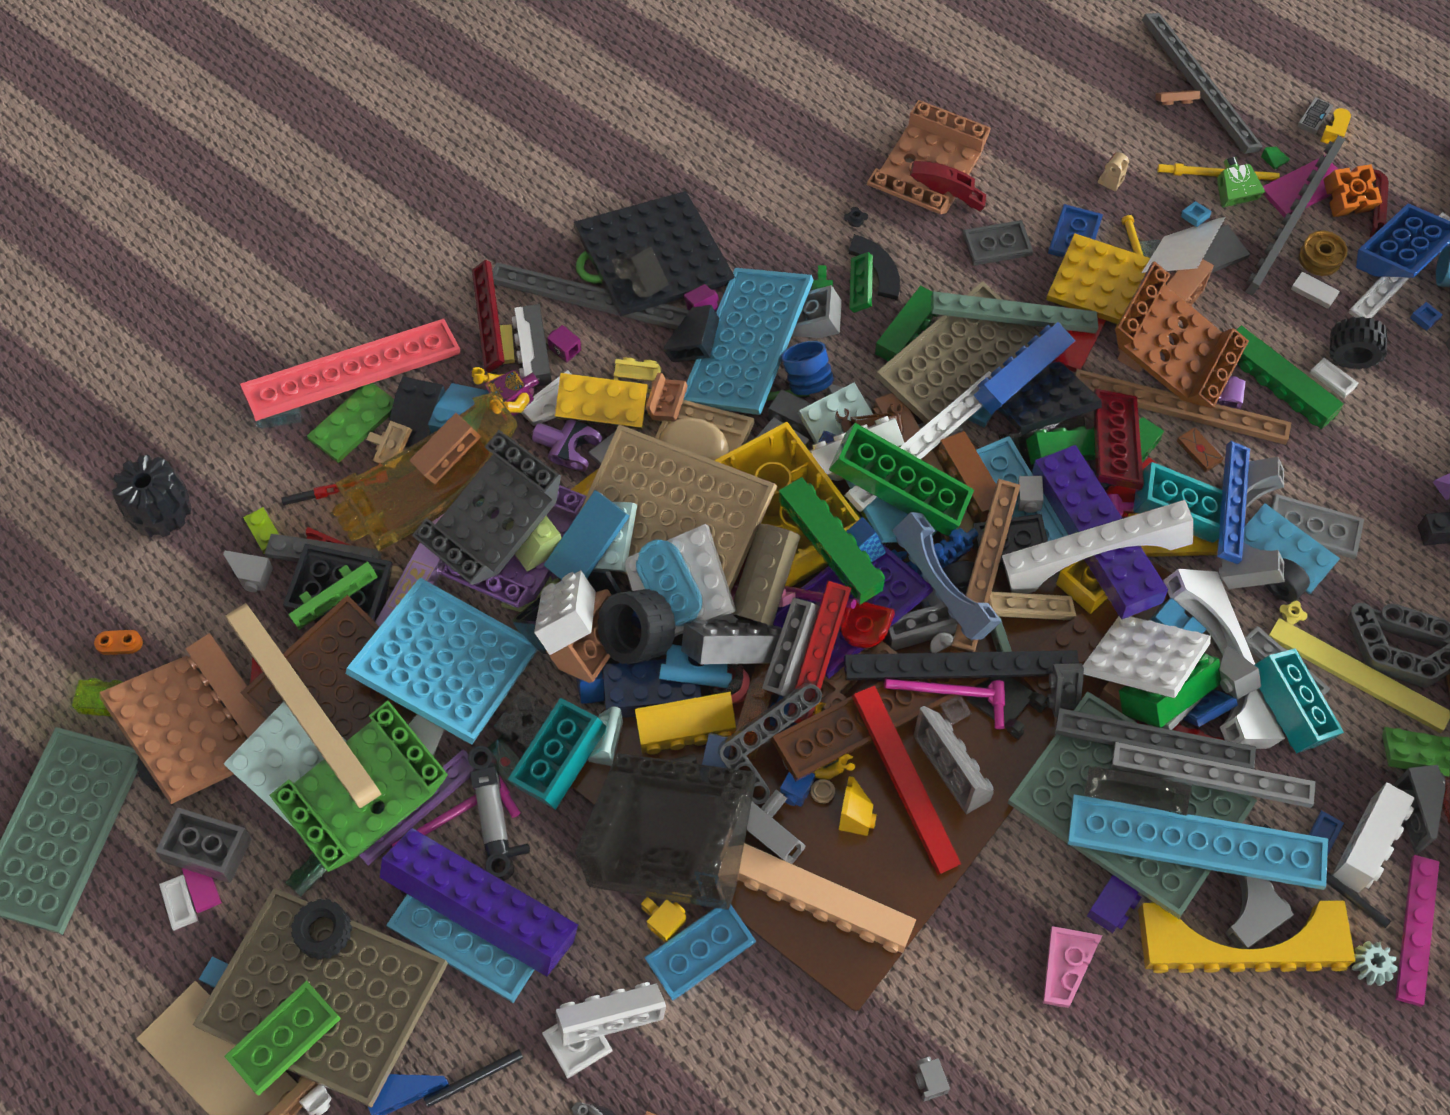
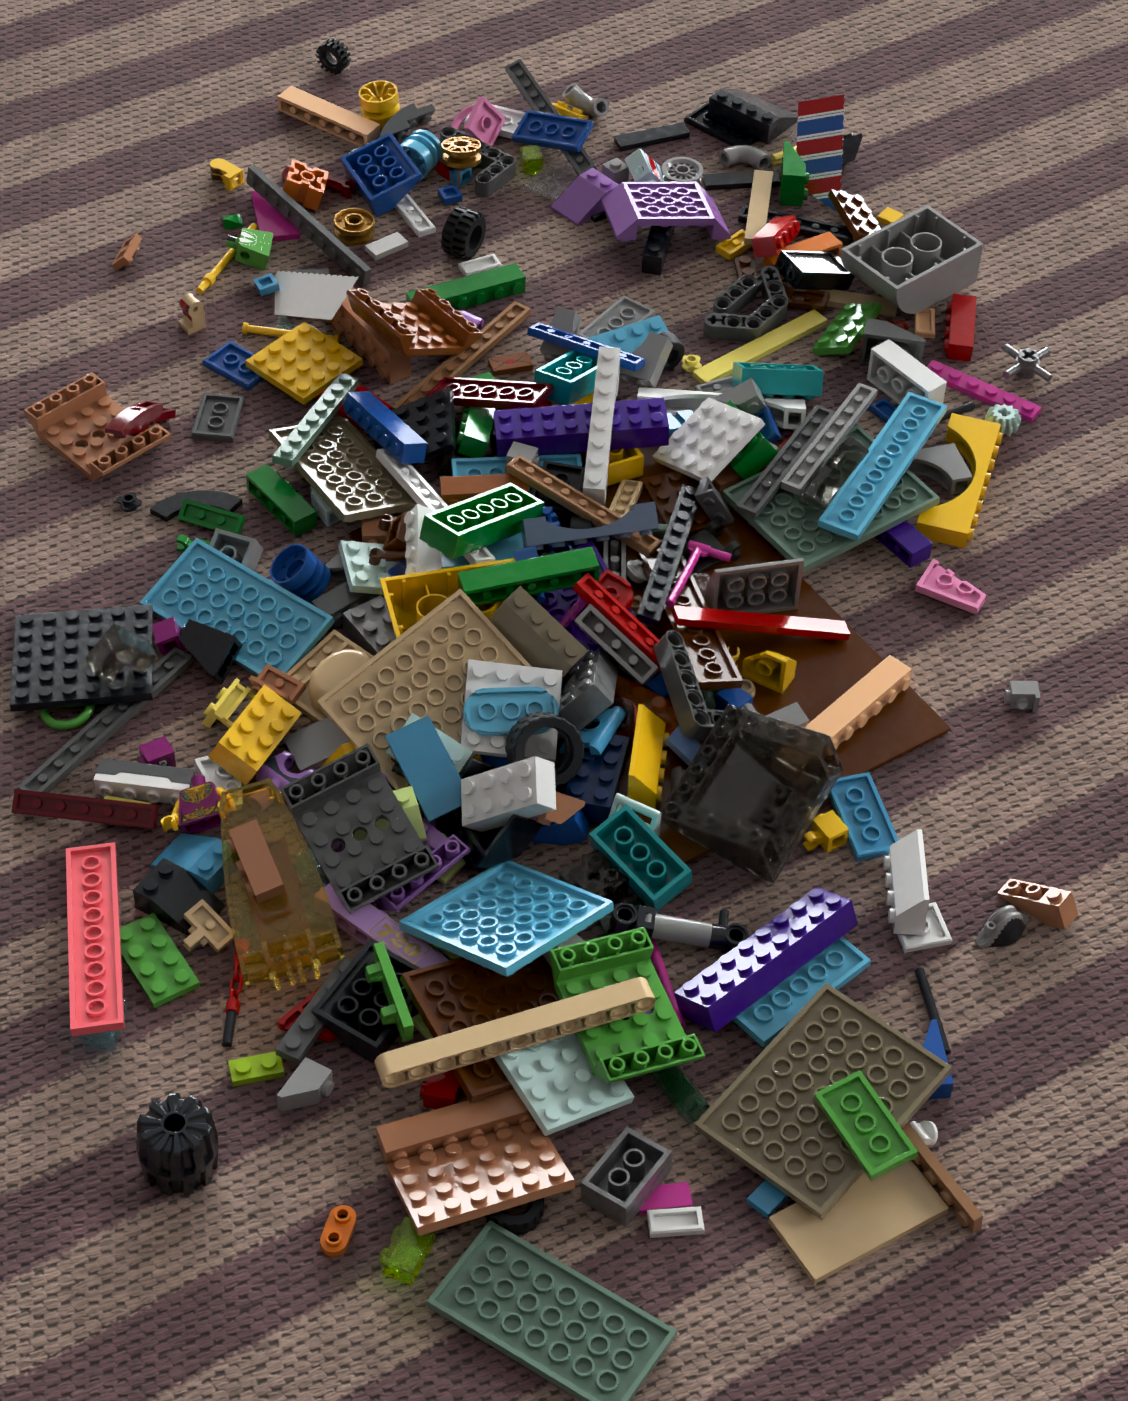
camera: 75 degrees left, 15 degrees down
(304, 920) = (766, 1096): black tyre -> none
(1201, 82) = (115, 233): dark grey plate -> none
(1315, 116) = (202, 182): tile -> none

